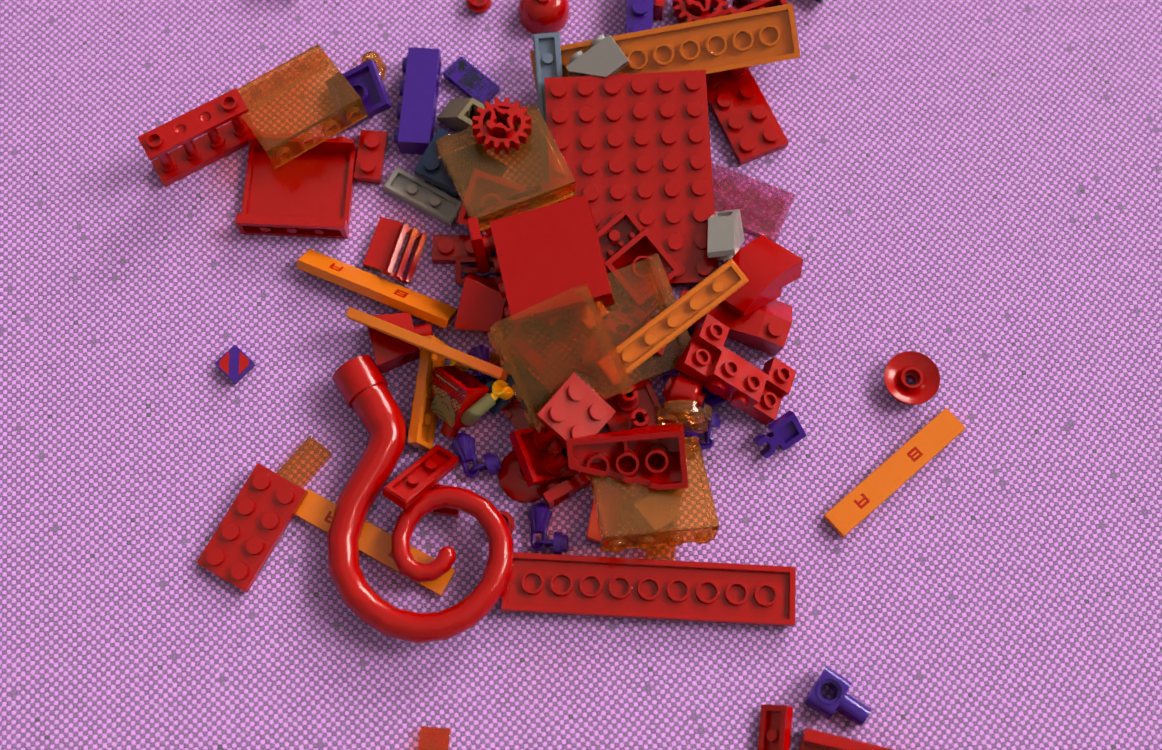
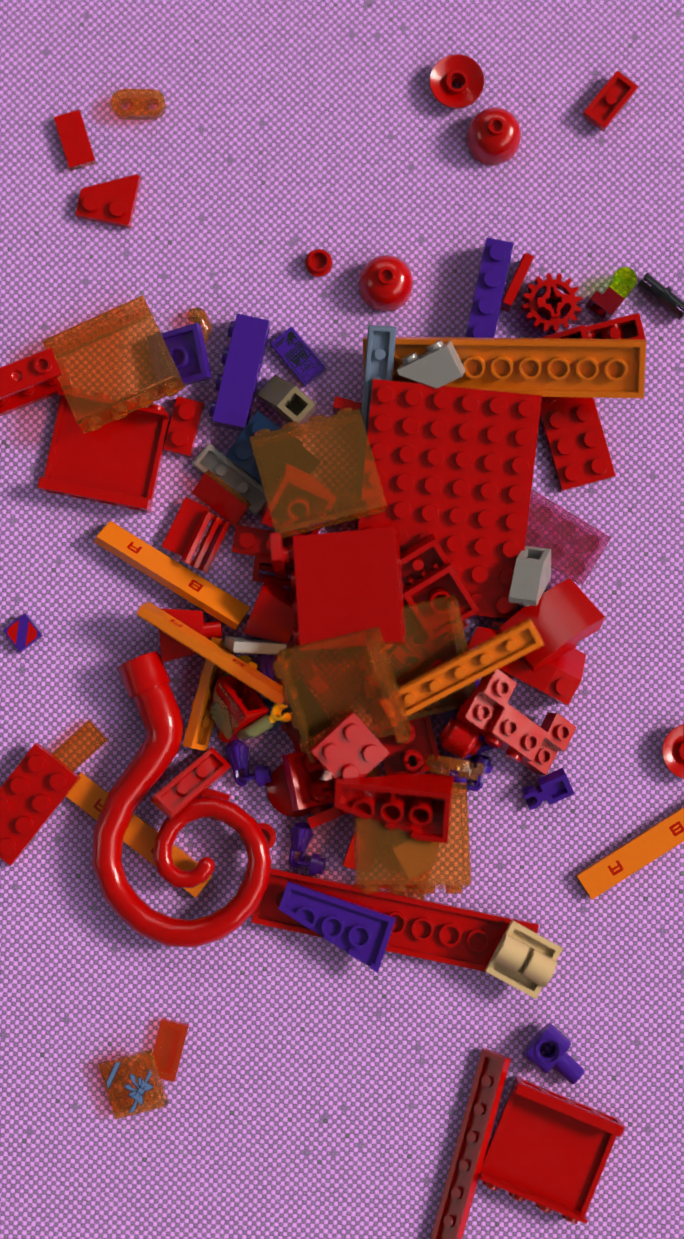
camera: 10 degrees right, 15 degrees up
(415, 212) = (221, 498): none -> red tile
(463, 337) = (253, 645): none -> light grey tile
(502, 125) = (309, 440): red gear -> none
(598, 592) = (347, 925): none -> dark purple wing
(787, 600) = (524, 959): none -> tan plate

